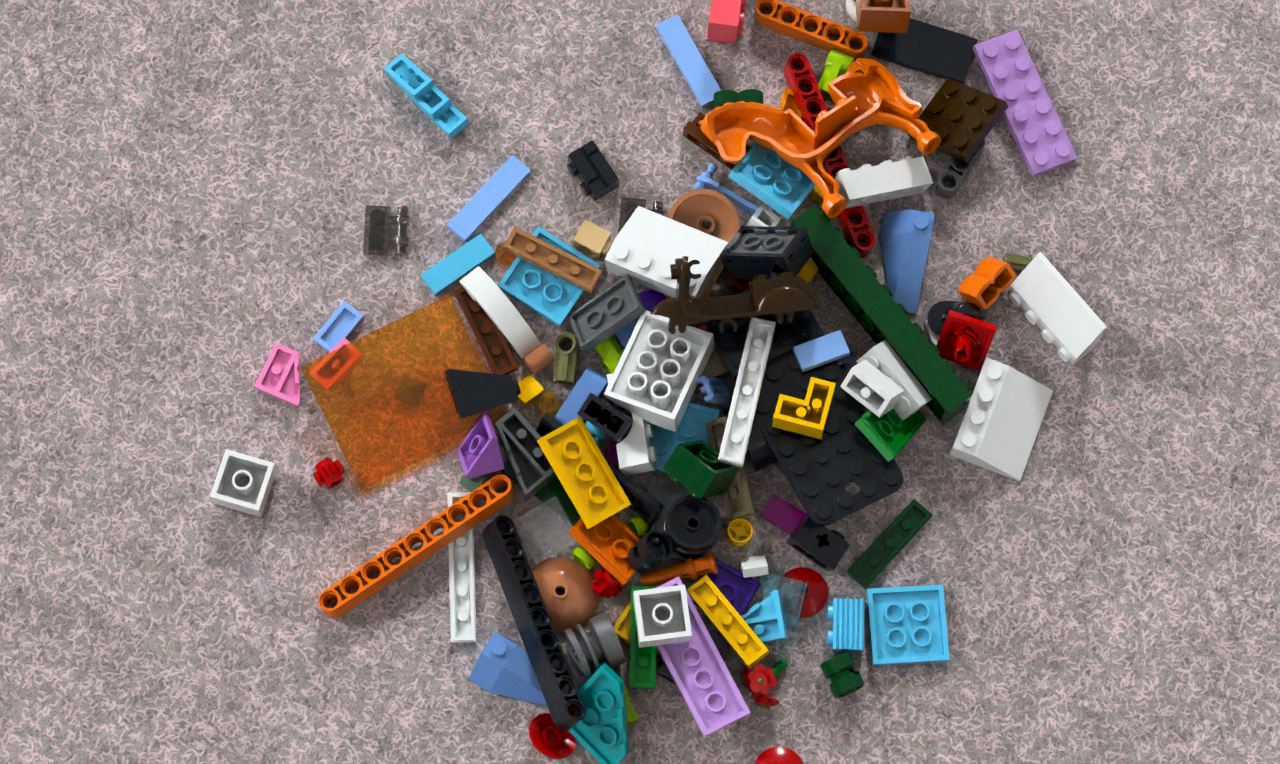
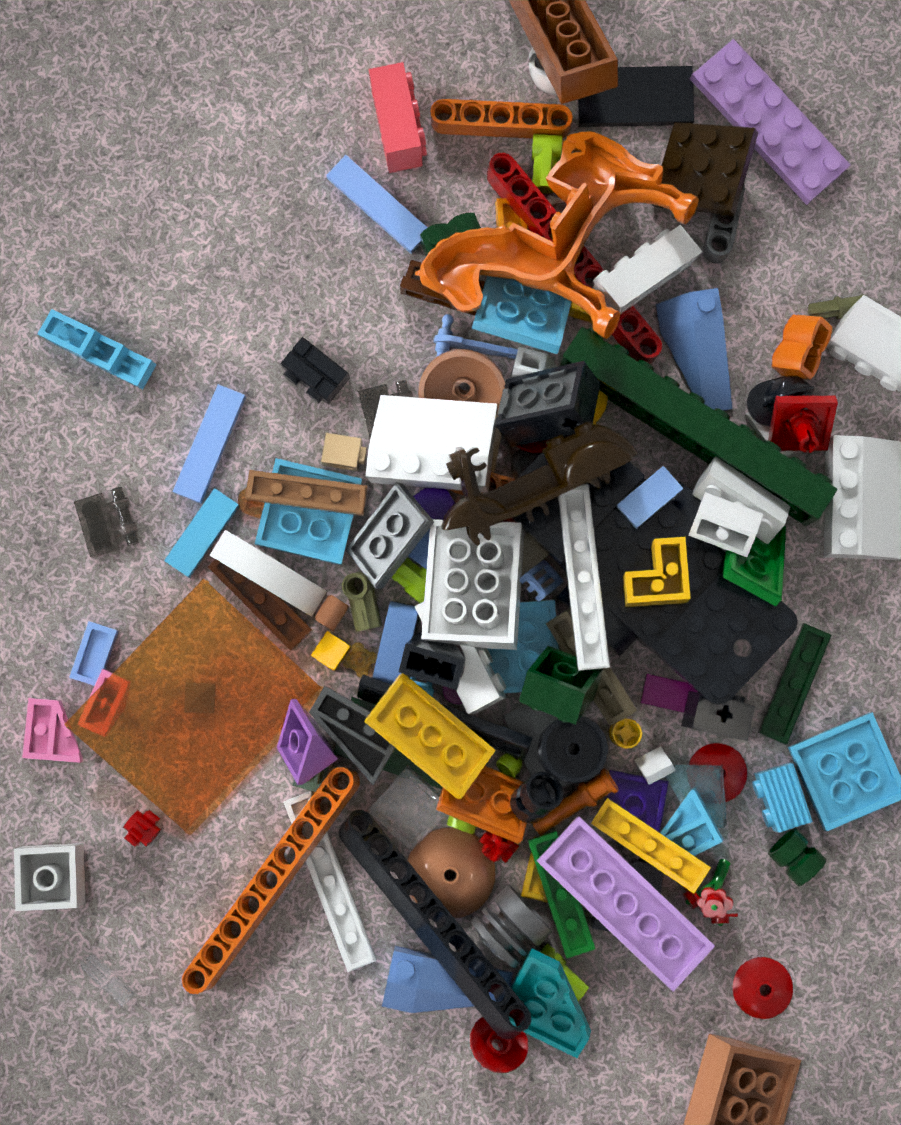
camera: 10 degrees left, 10 degrees up
(480, 391) = (278, 676): black slope -> none
(662, 616) = (580, 877): white brick -> none

